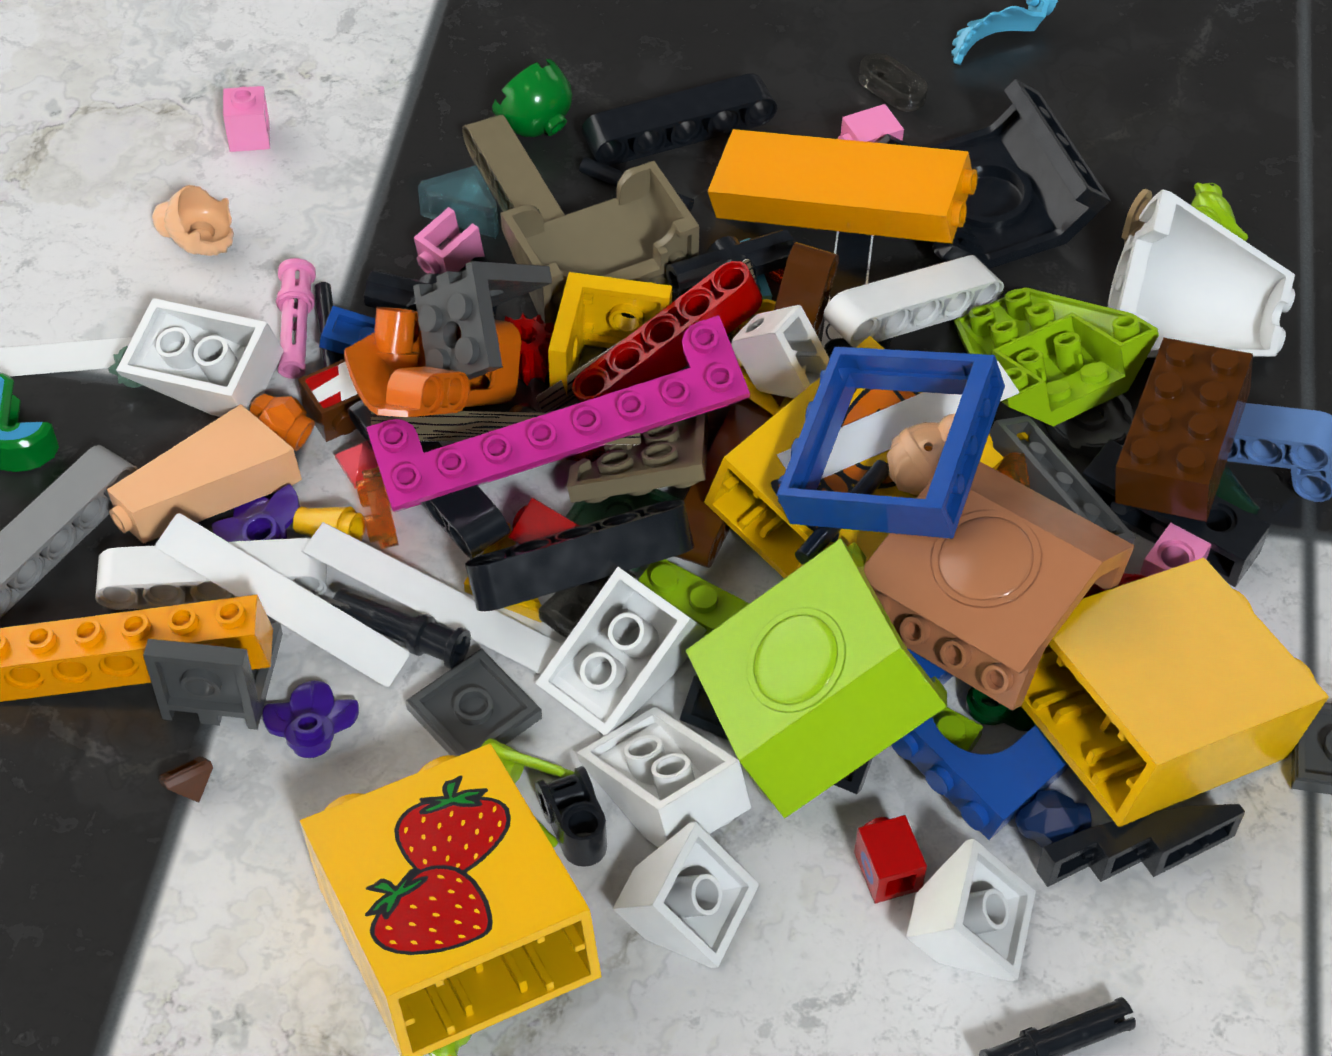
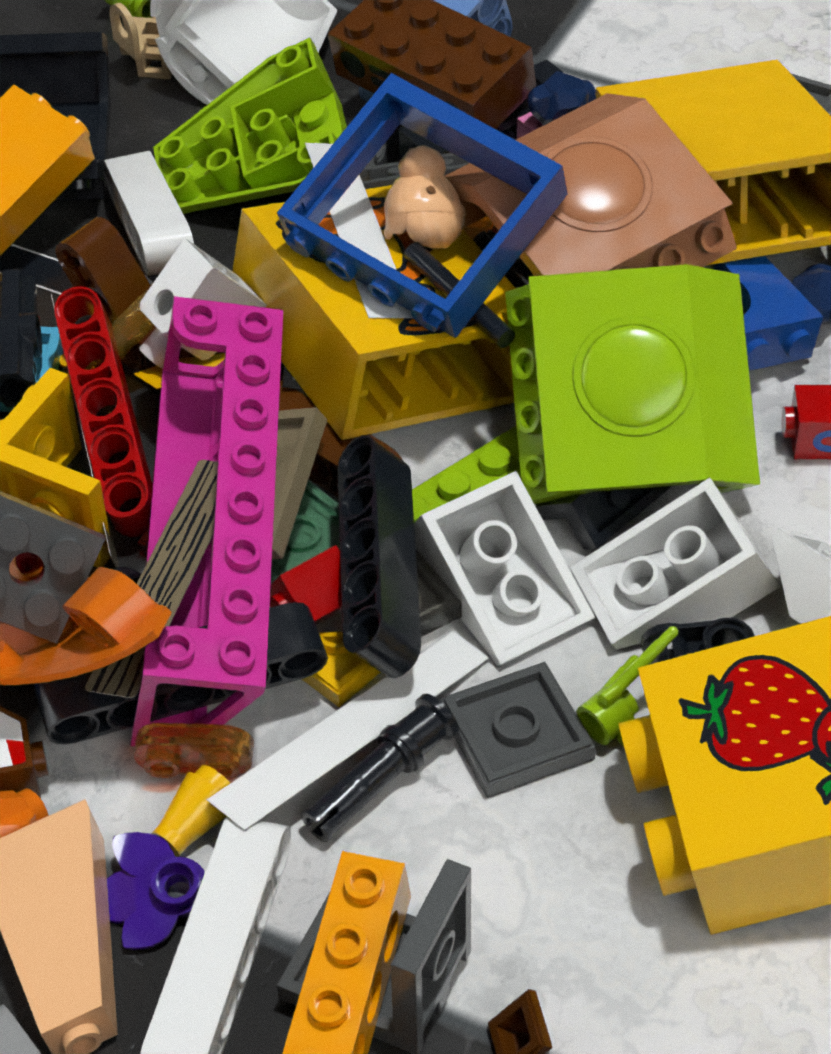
camera: 70 degrees left, 5 degrees down
(283, 600) = (292, 876): white sticker -> none
(310, 718) = (489, 872): dark purple plate -> none
(355, 460) = (100, 763): coral slope -> none
(1186, 538) = (559, 96): none -> dark blue rock

